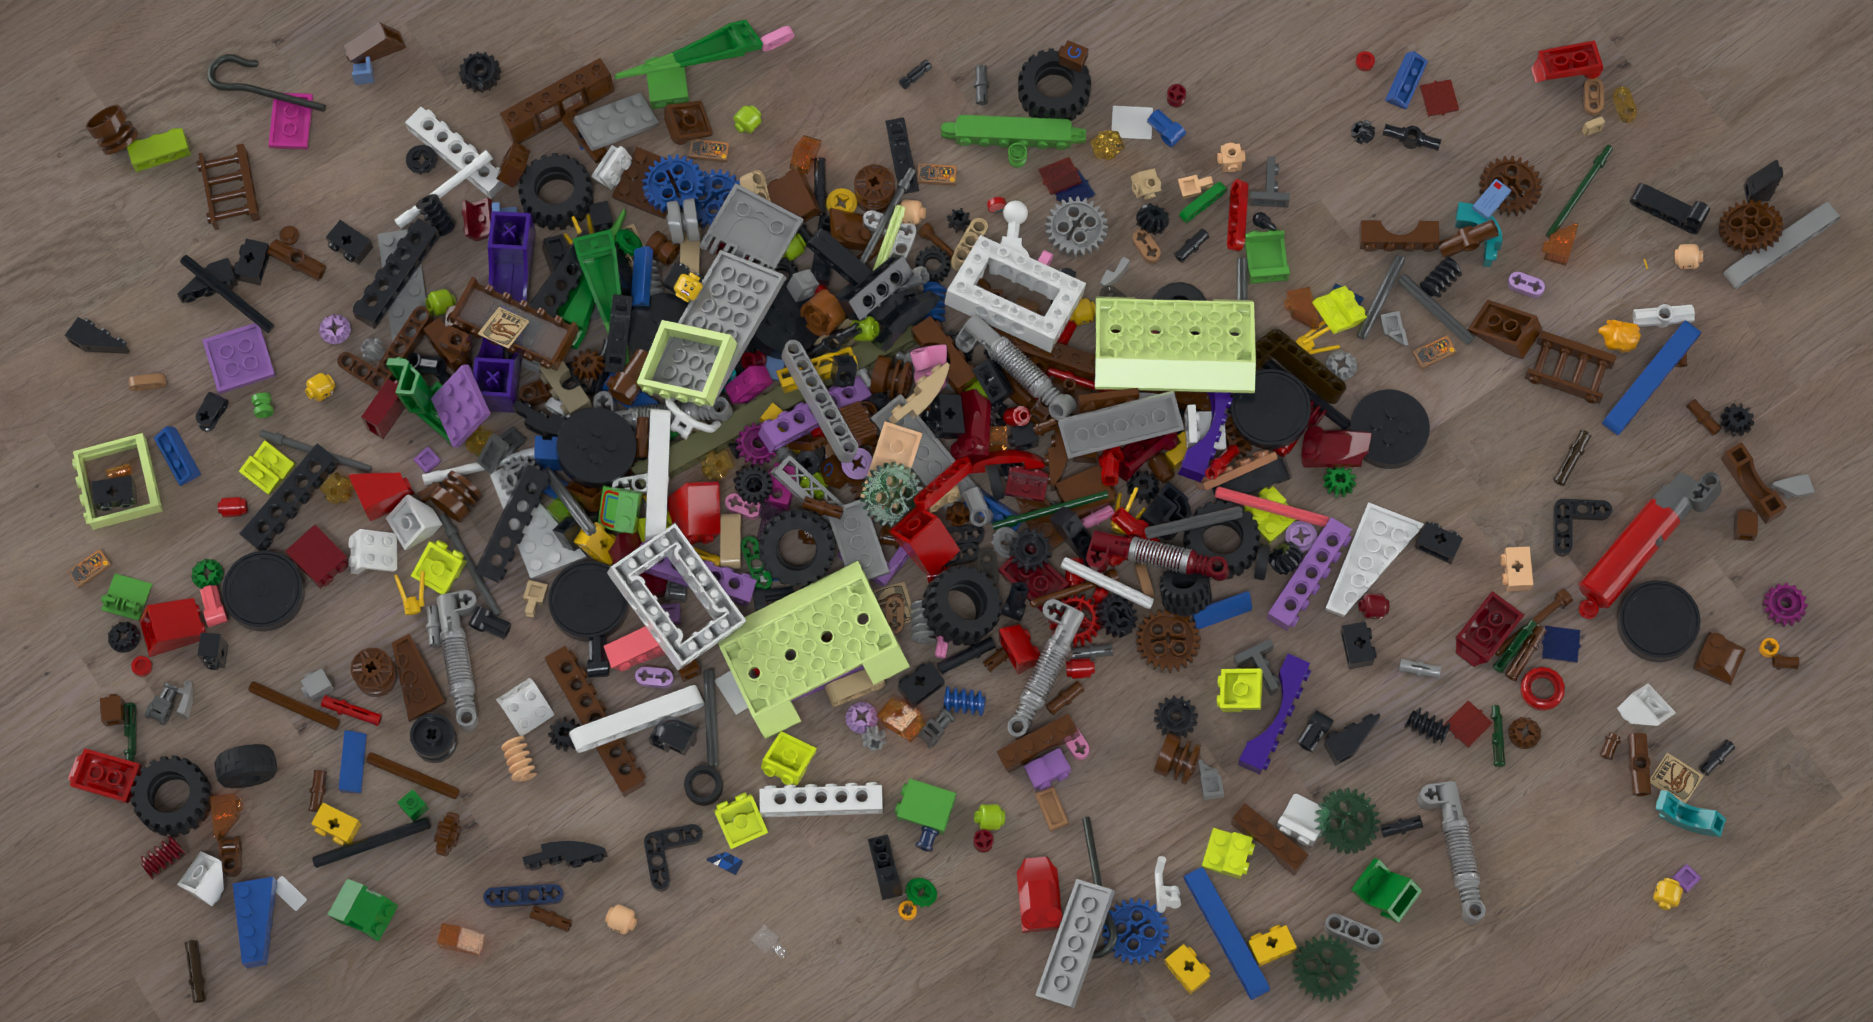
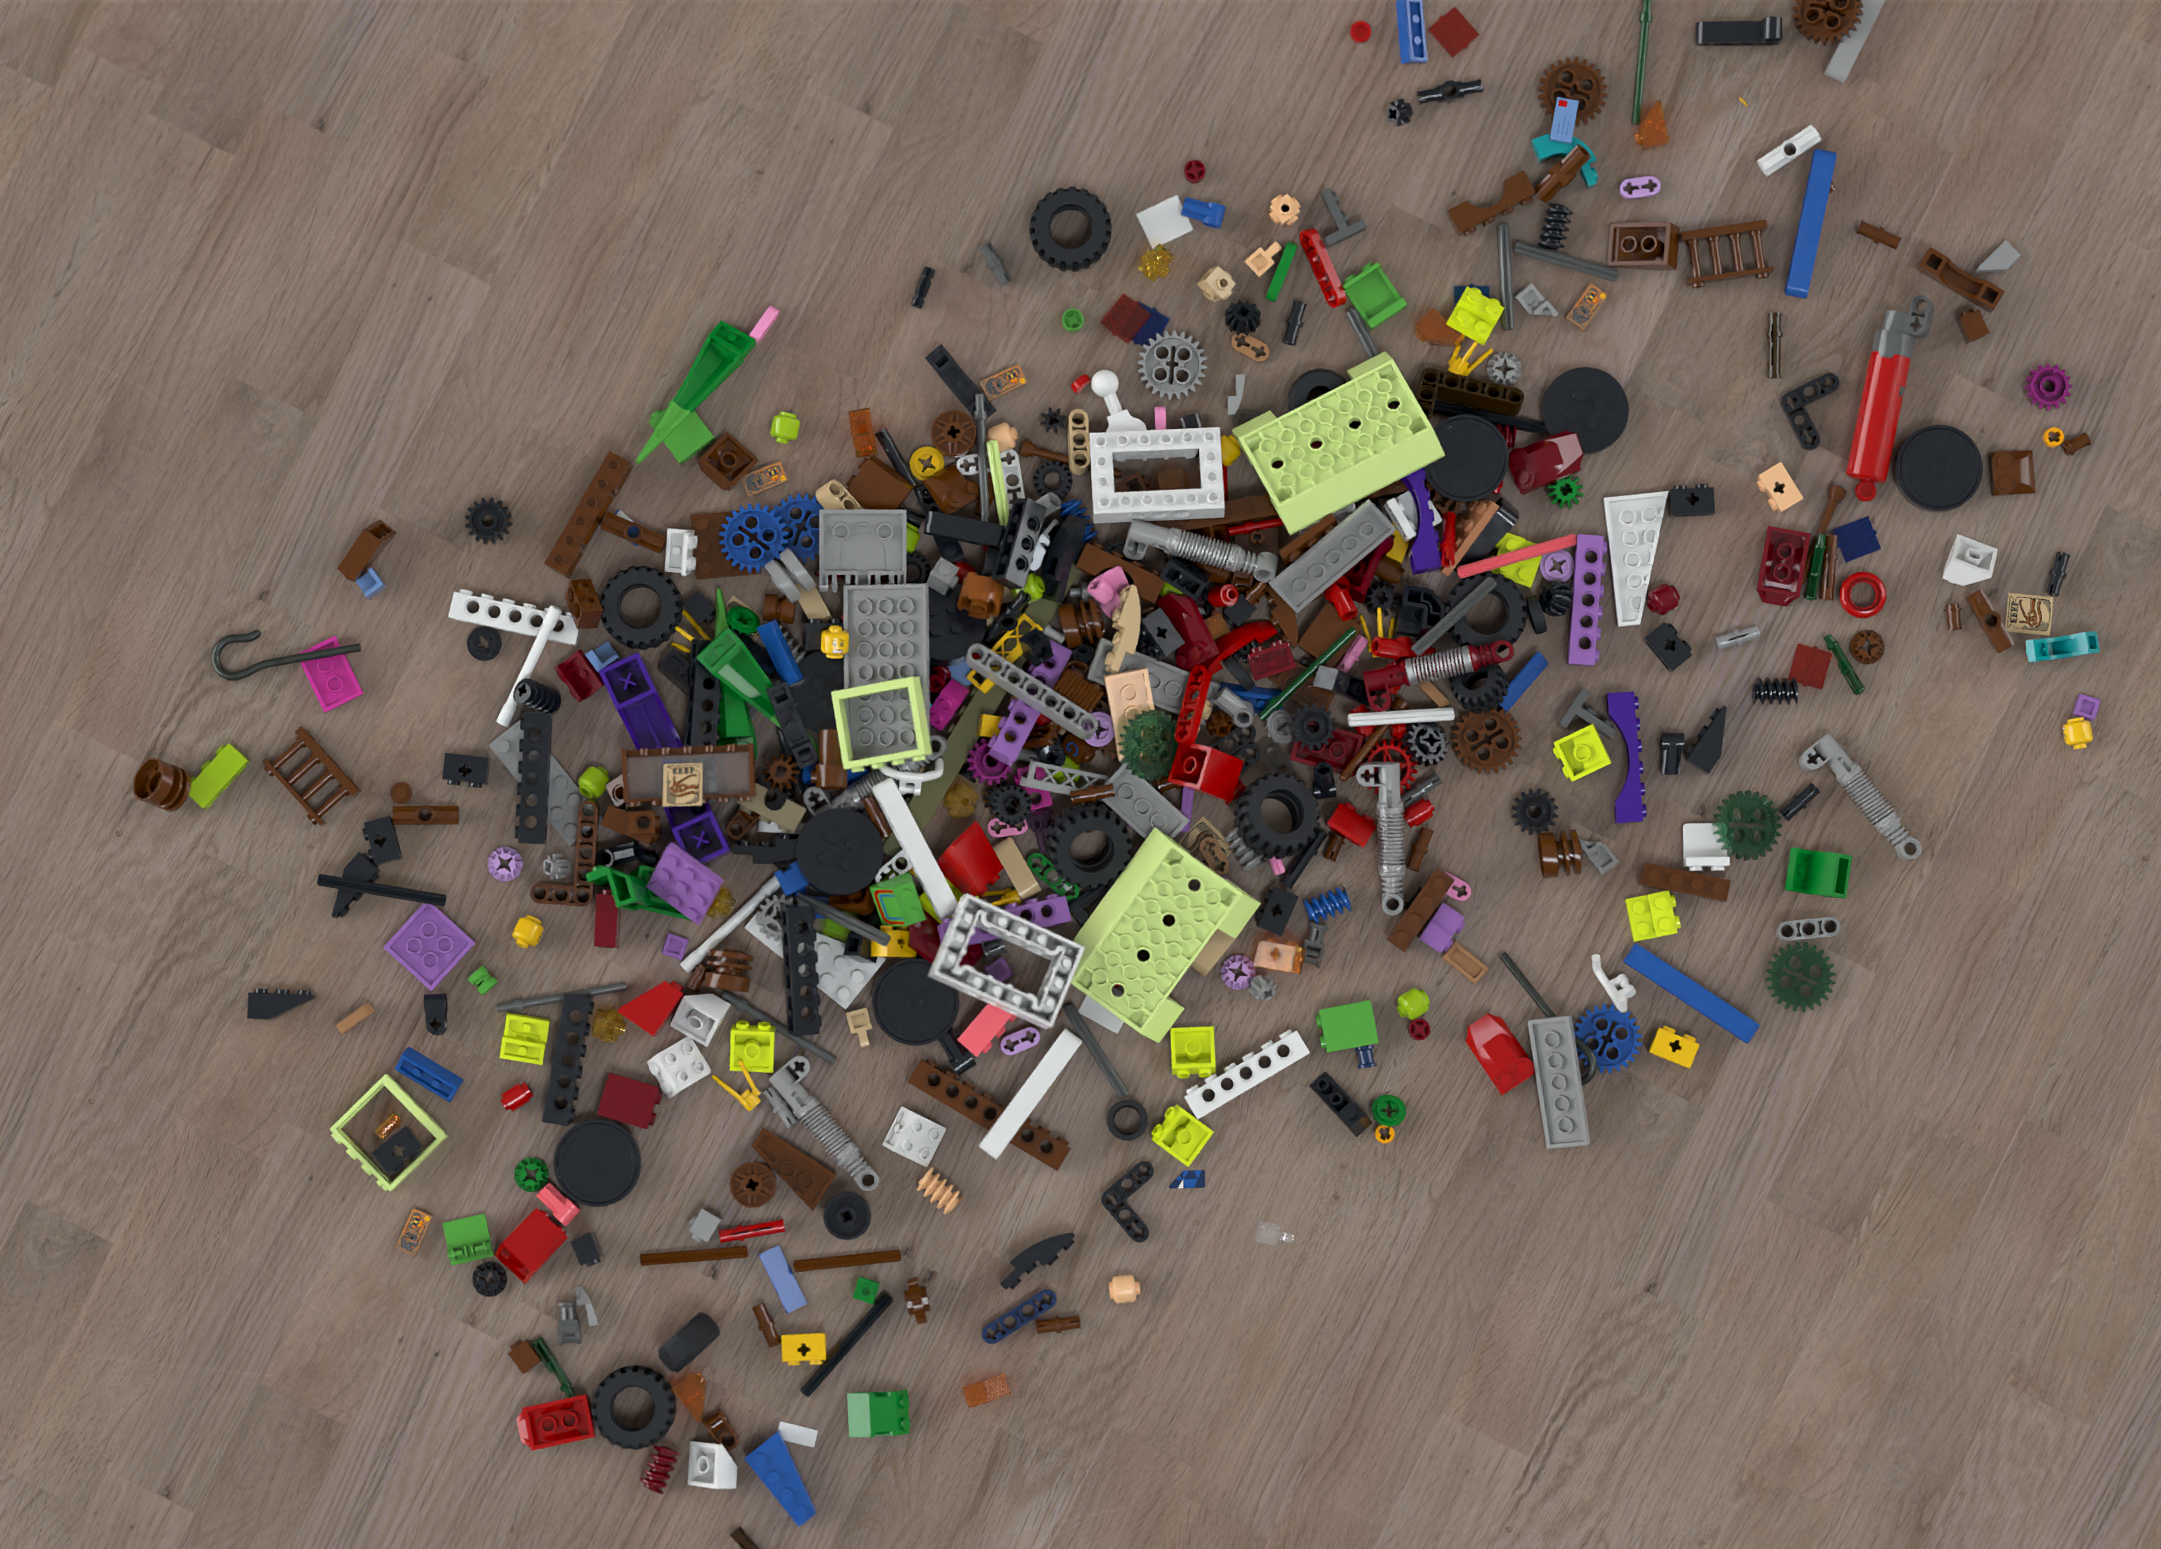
camera: 30 degrees left, 15 degrees up
(141, 666) = (524, 1298): red tile -> none
(484, 620) = (830, 1075): black piece -> none
(499, 448) = (743, 899): dark grey bracket -> none
(556, 734) = (970, 1150): black gear -> none
(616, 121) = (657, 501): light grey plate -> none
(674, 735) = (1074, 1089): black brick -> none
(1006, 131) = (1056, 297): bright green hinge -> none
(1073, 56) = (1077, 194): reddish brown brick -> none
(1261, 220) = (1349, 260): black bar -> none
(1265, 954) = (1736, 995): yellow brick -> none
(1620, 335) = (1758, 194): light orange animal -> none
(1688, 256) = (1782, 74): light nougat head -> none
(1744, 423) = (1906, 214): black gear -> none

